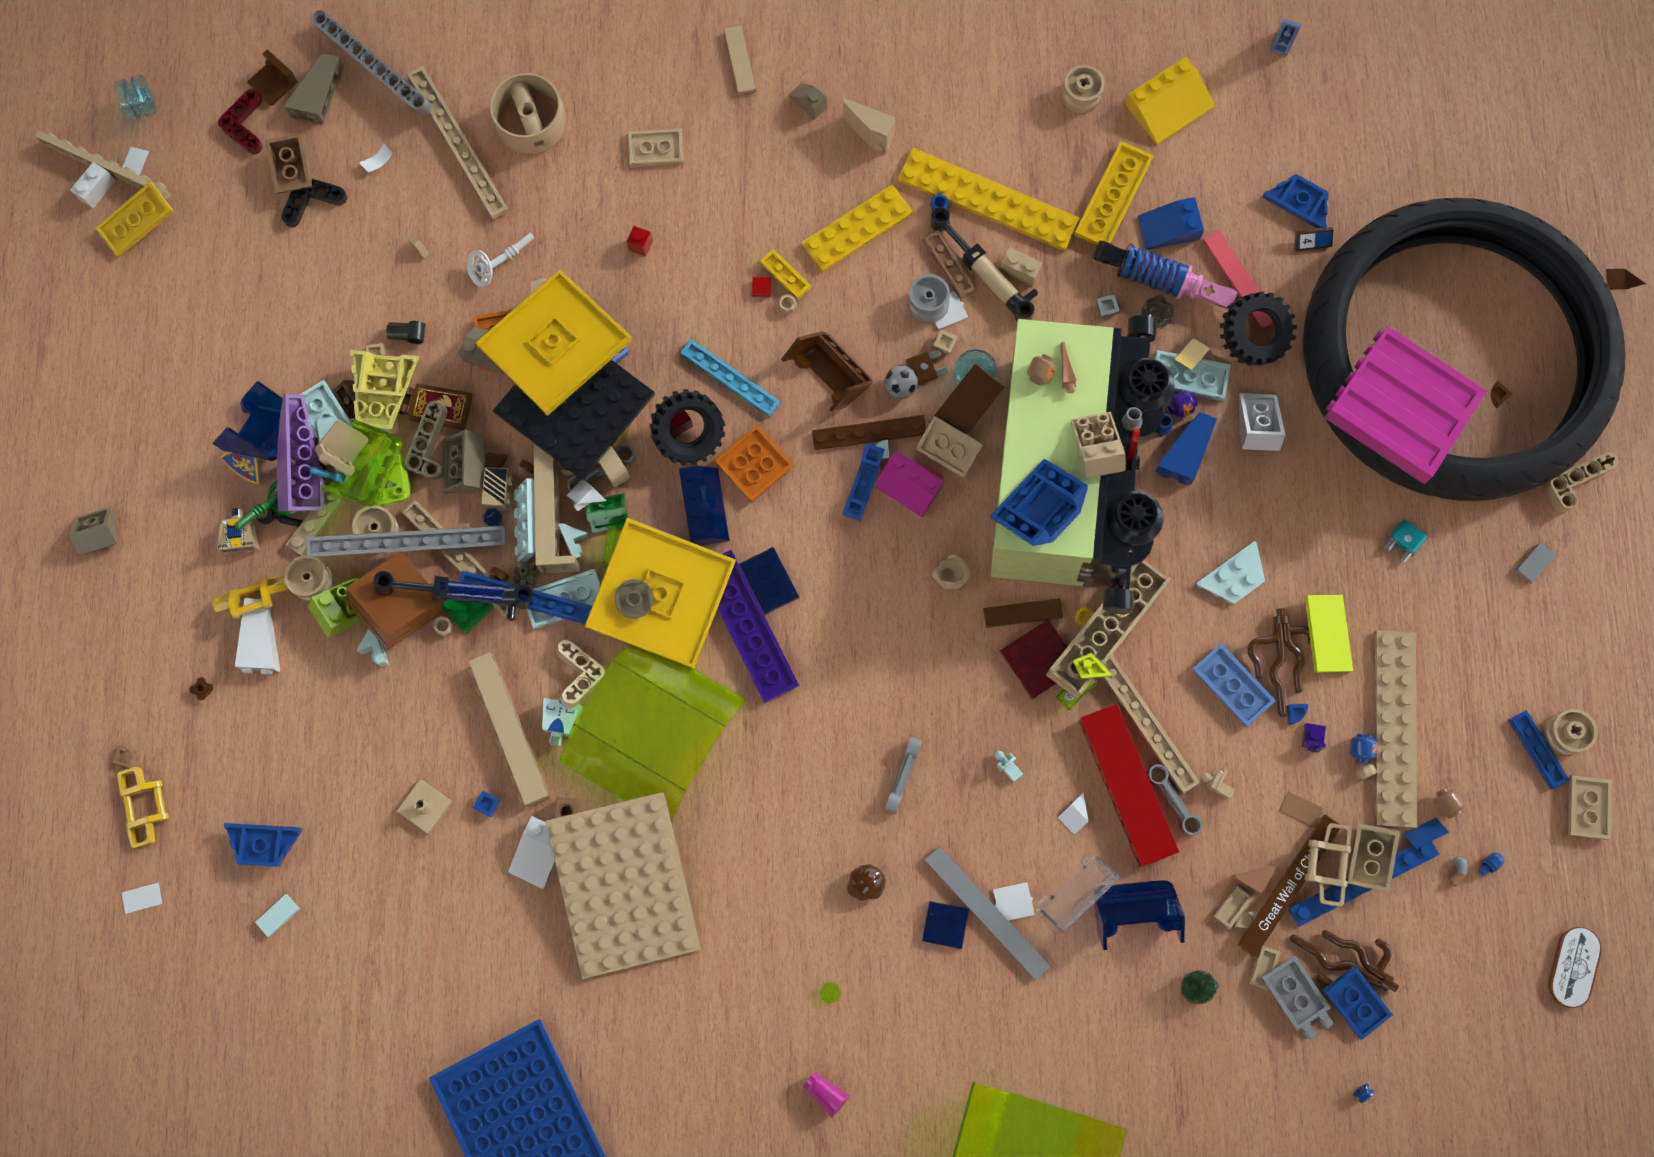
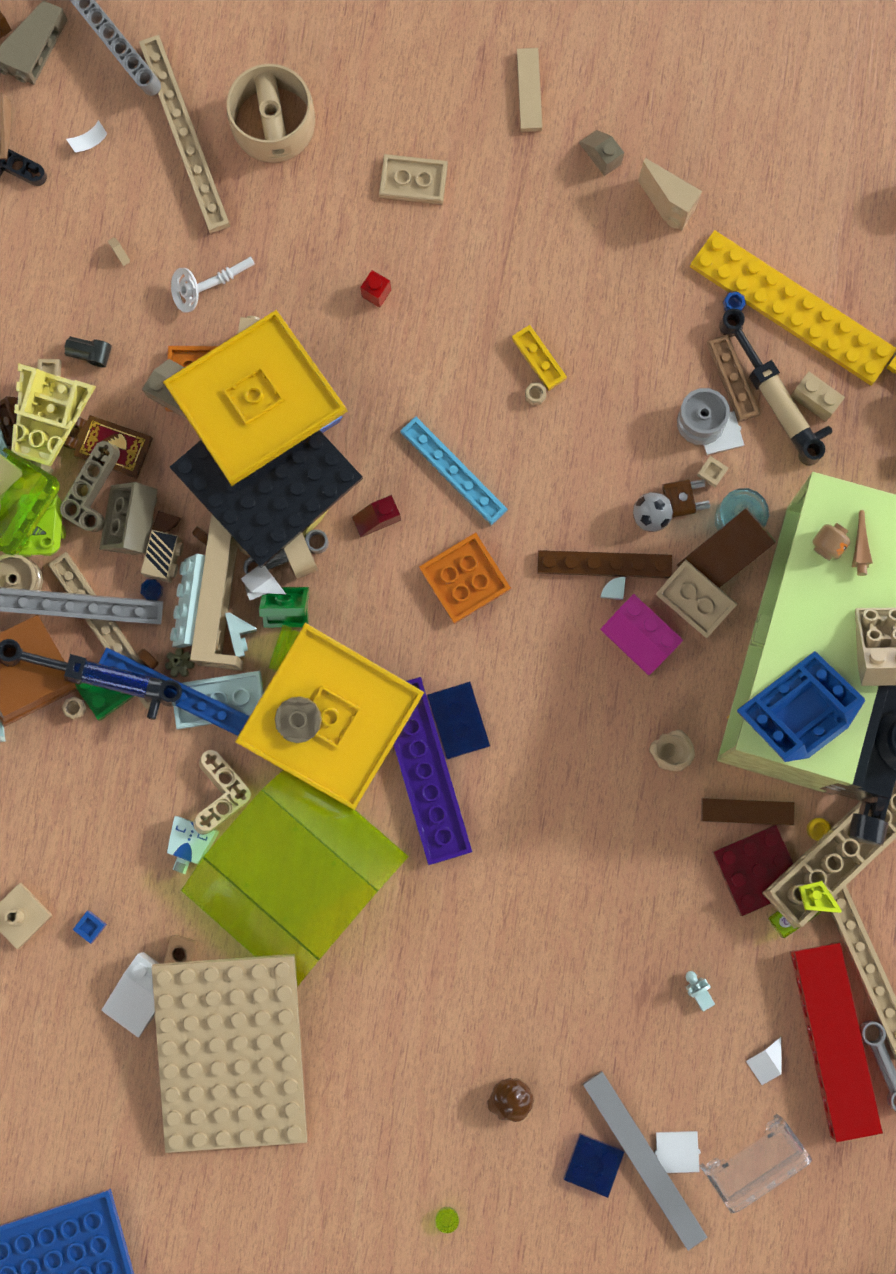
camera: 10 degrees right, 5 degrees up
(509, 730) = (129, 844): tan brick -> none
(704, 444) = (400, 550): black tyre -> none
(704, 505) = (398, 618): clear blue slope -> none
(761, 287) = (508, 367): red tile -> none
(832, 365) = (576, 479): reddish brown windscreen -> none
(857, 228) = (632, 316): yellow plate -> none
(864, 482) = (588, 623): blue slope -> none
(903, 775) = (562, 1003): light grey piece -> none
(1139, 904) = (829, 1182): clear blue windscreen -> none

